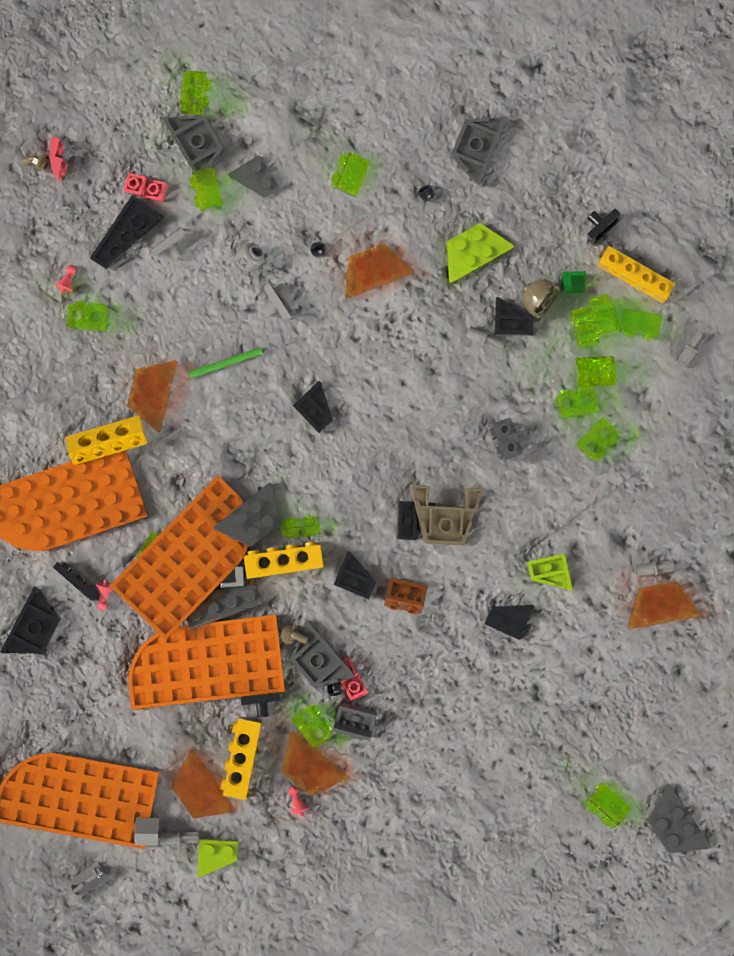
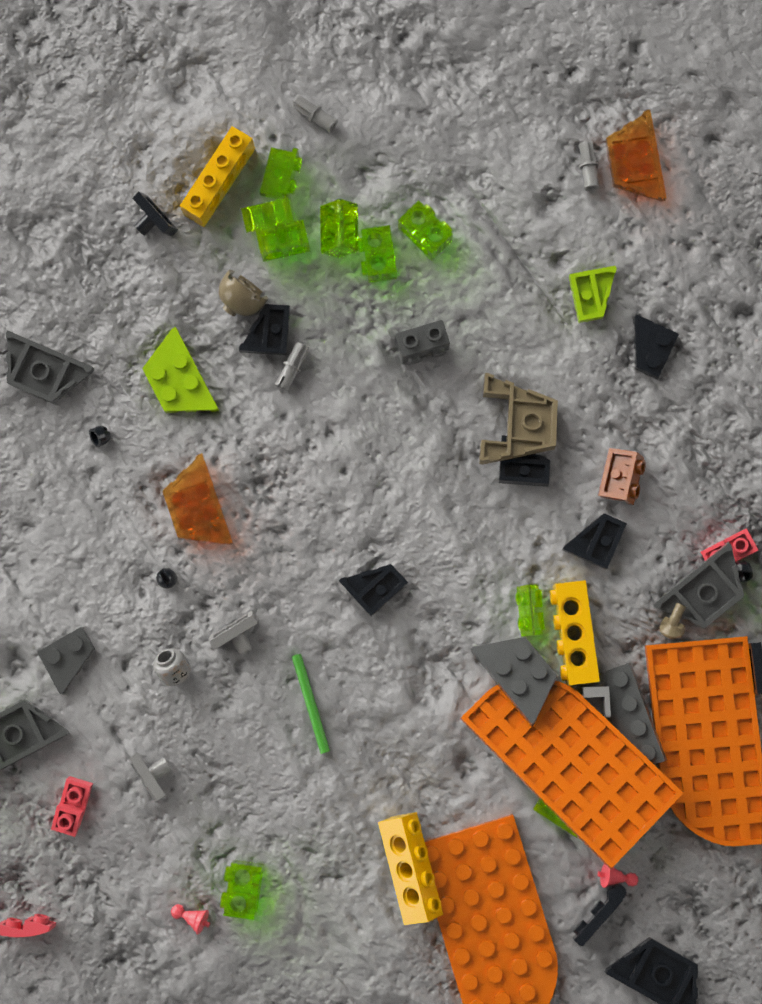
camera: 80 degrees left, 5 degrees down
(41, 162) = (28, 949): dark tan plate -> none
(127, 229) = (125, 830): black wing -> none
(151, 392) = (346, 804): clear orange wing -> none
(206, 188) = (77, 722): clear neon green bracket -> none
(349, 173) = (69, 533): clear neon green bracket -> none
(573, 281) = (223, 255): green panel -> none

